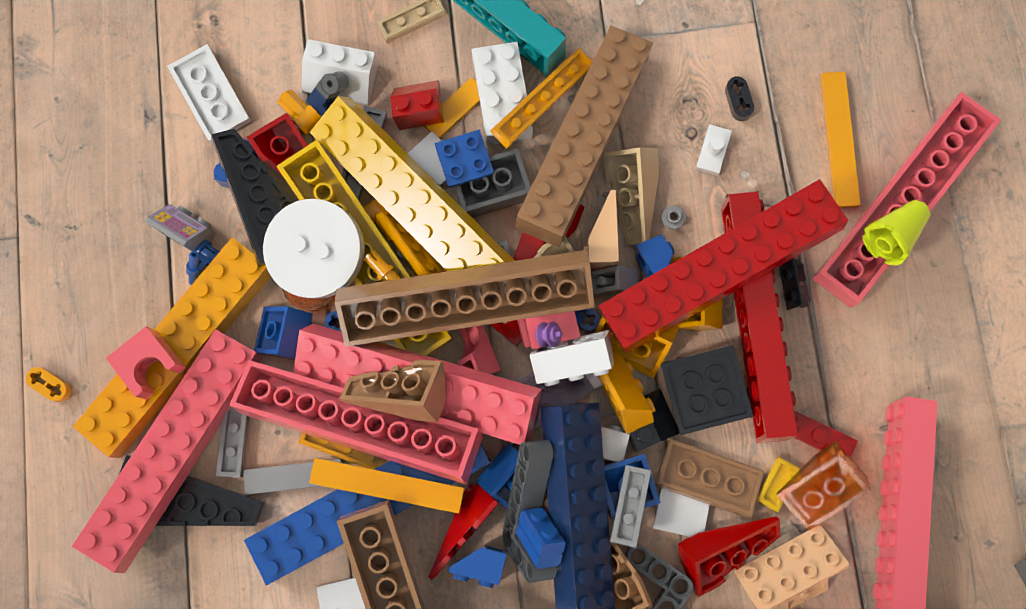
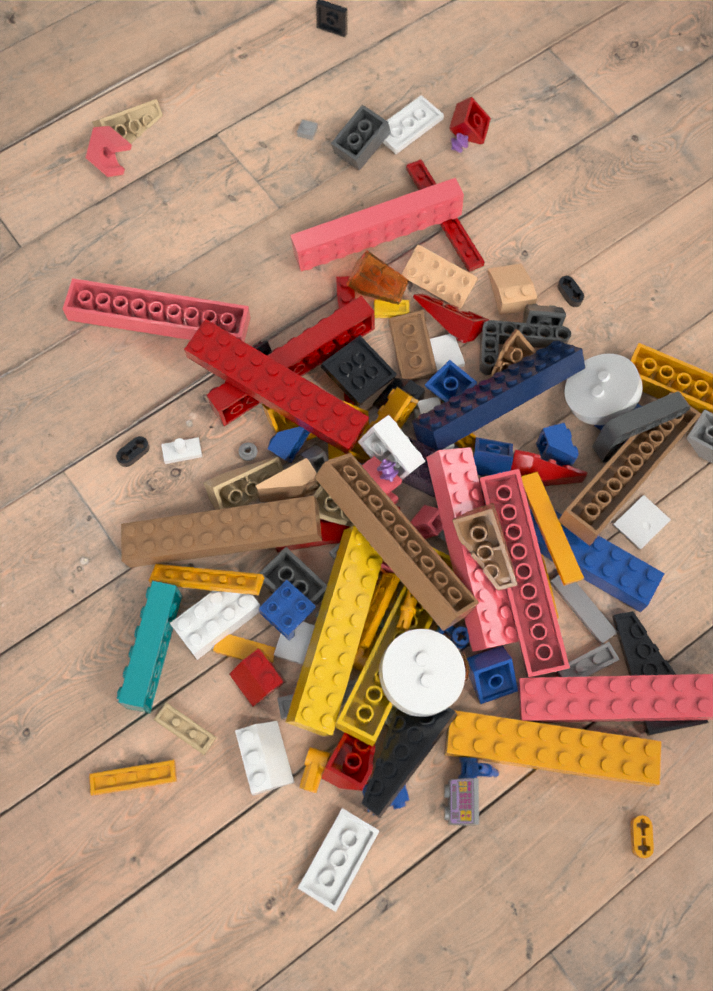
camera: 130 degrees left, 10 degrees down
(136, 357) = (577, 758): coral piece -> none
(327, 91) = (283, 751): dark grey leg -> none
(527, 493) = (517, 436): dark grey beam -> none
(540, 538) = (520, 411): blue brick -> none
(630, 506) = (464, 372): light grey plate -> none
(840, 139) = (130, 374): light orange tile -> none
(897, 232) = (190, 299): neon yellow cone -> none

